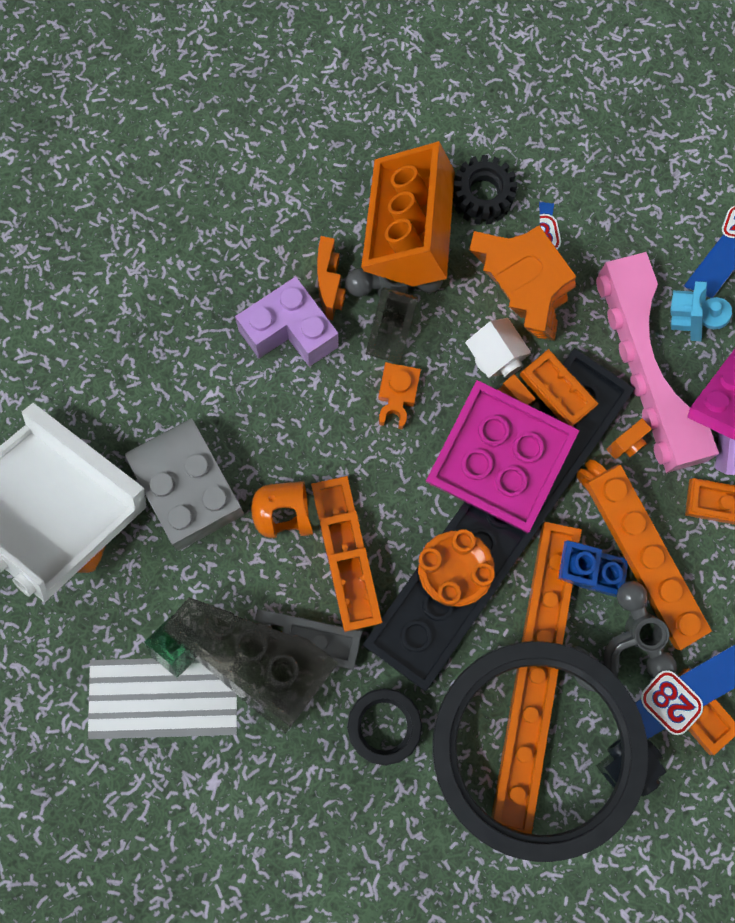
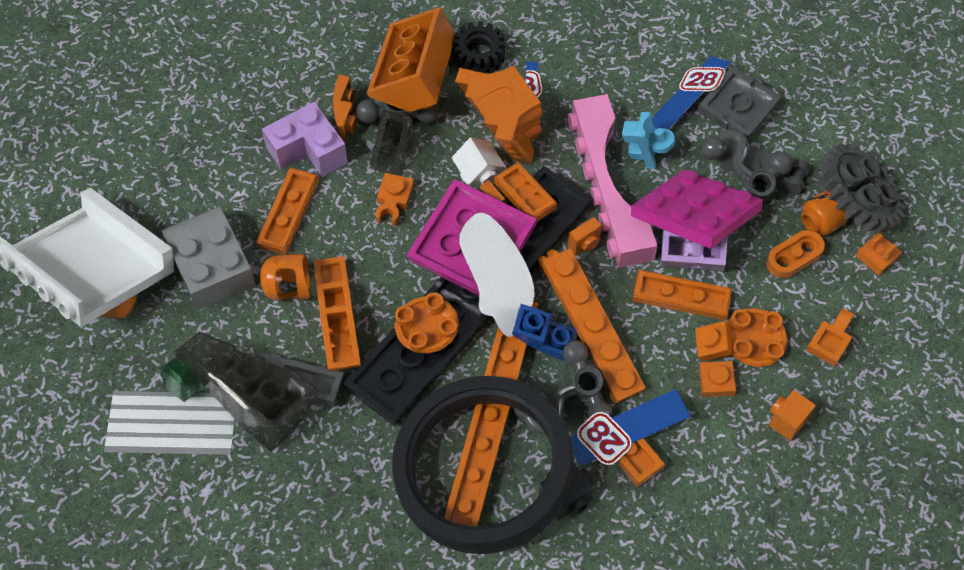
camera: 10 degrees right, 15 degrees down
(273, 416) = (287, 211): none -> orange tile
(413, 733) = (352, 425): black tyre -> none
(537, 500) = (497, 269): none -> white sticker

